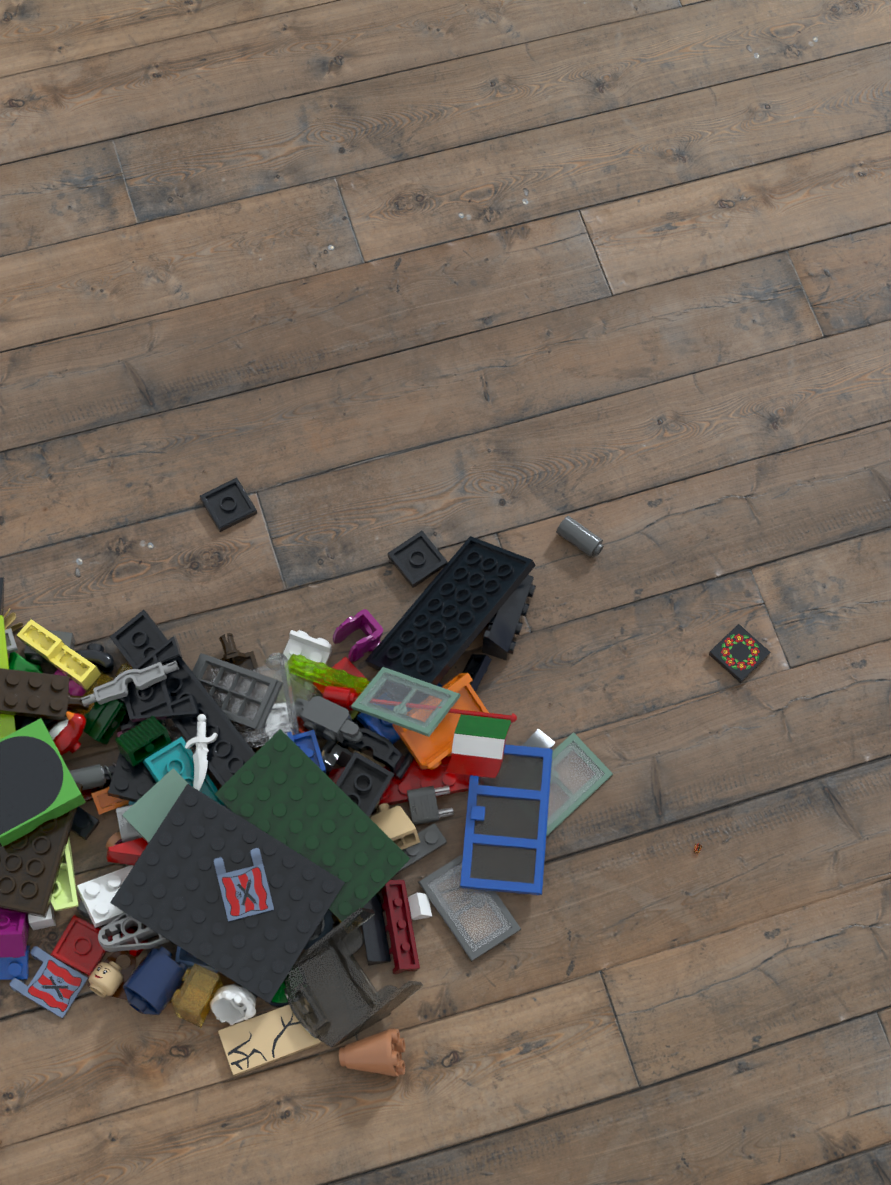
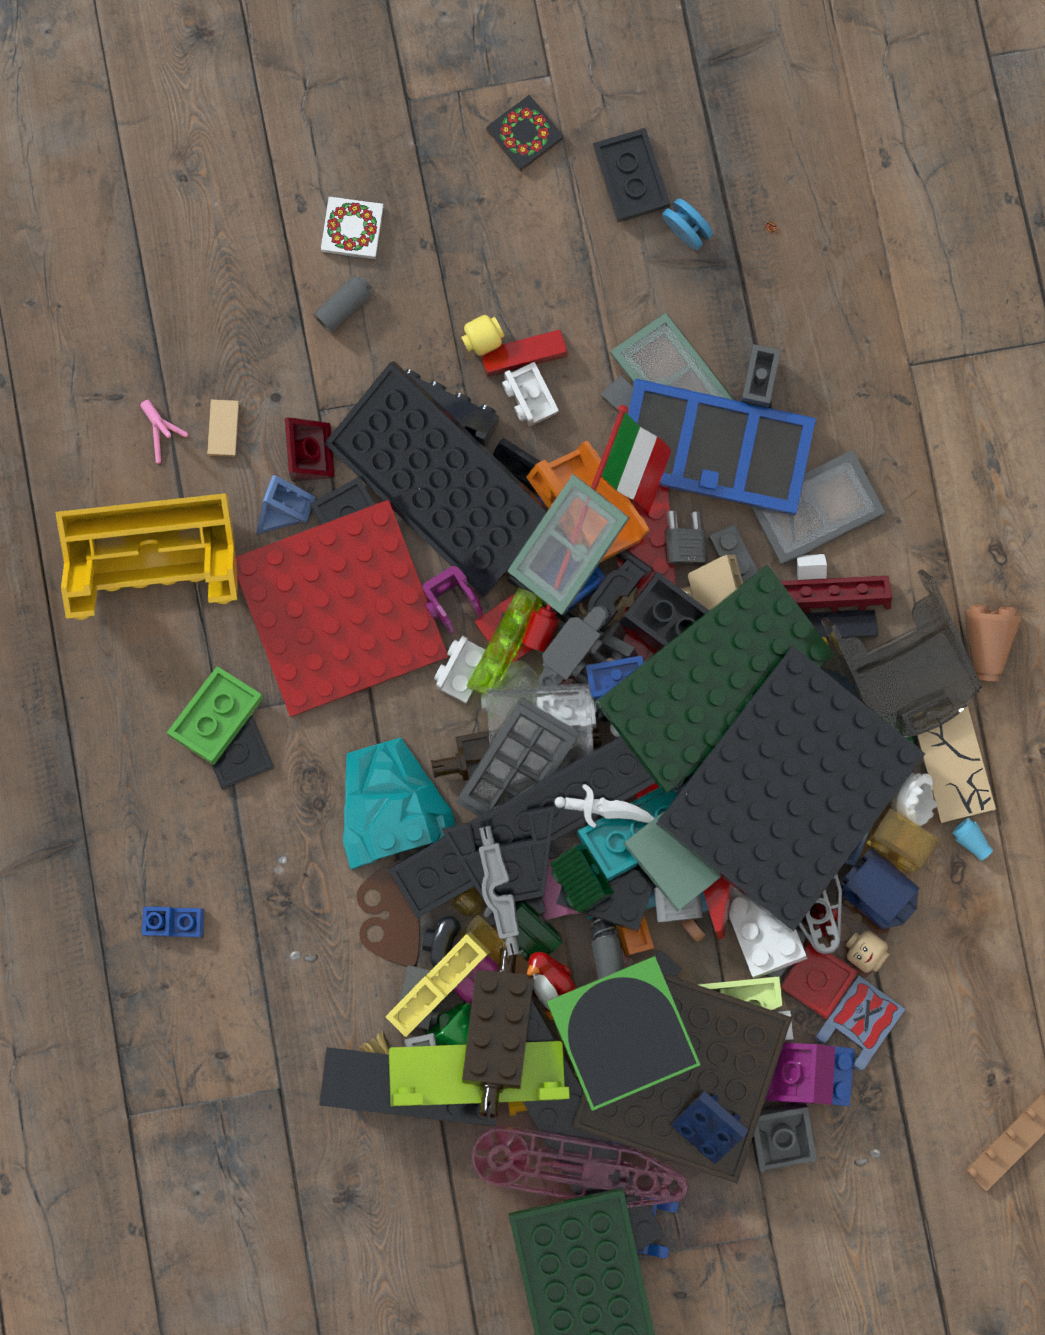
camera: 80 degrees left, 15 degrees up
(97, 475) = (173, 922): none -> blue slope
(100, 631) = (400, 929): none -> reddish brown piece
(198, 612) = (389, 804): none -> teal wedge
(206, 1057) = (971, 837): none -> medium azure cone
(244, 890) = (796, 765): flag -> none
(252, 483) = (215, 715): none -> bright green plate
(344, 559) = (339, 608): none -> red plate
(371, 415) = (145, 547): none -> yellow wedge
(418, 511) = (283, 506): none -> medium blue slope
(462, 521) = (306, 449): none -> dark red slope
(471, 423) = (159, 423): none -> bright pink plant
(472, 467) = (223, 428): none -> tan tile
(529, 676) = (530, 394): none -> white bracket
(562, 670) = (524, 352): none -> red slope
(568, 846) = (760, 375): none -> dark grey brick
(571, 637) = (482, 335): none -> light yellow head
(641, 538) = (352, 228): none -> tile
(685, 777) = (687, 223): none -> dark azure head
(719, 734) = (631, 175): none -> black plate

